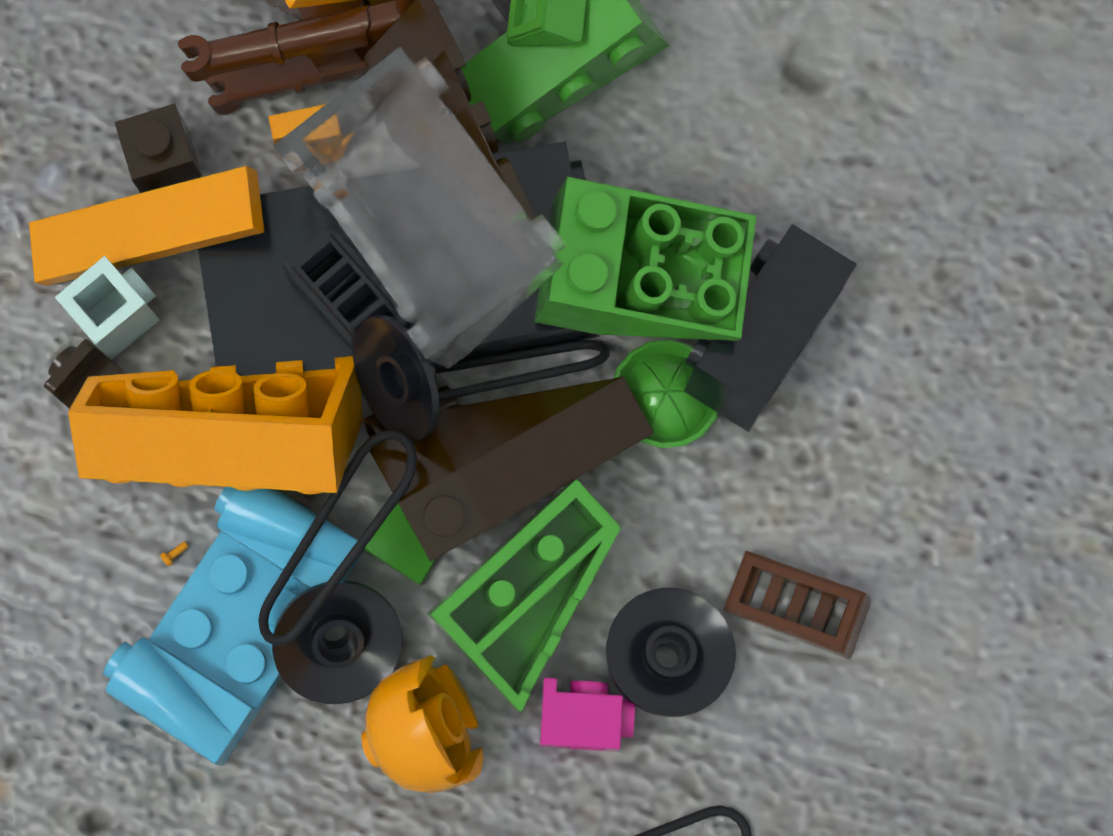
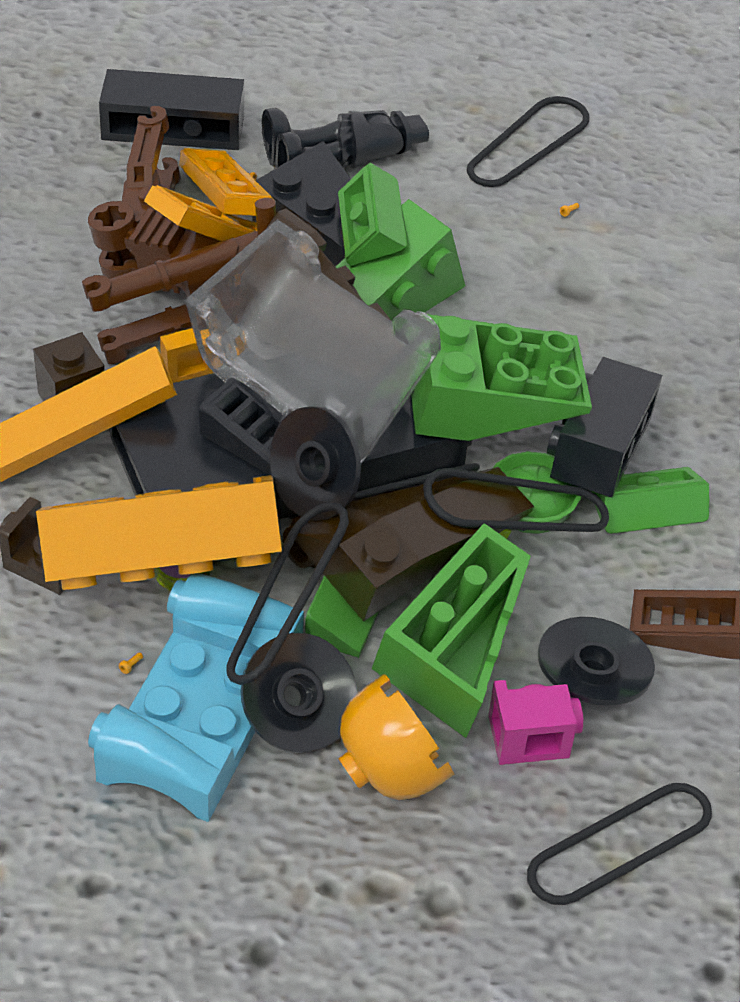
camera: 15 degrees left, 30 degrees down
(109, 306) = (46, 471): light aqua brick -> none
(623, 470) = (514, 525): none -> black piece
(811, 421) = (657, 500): none -> bright green slope

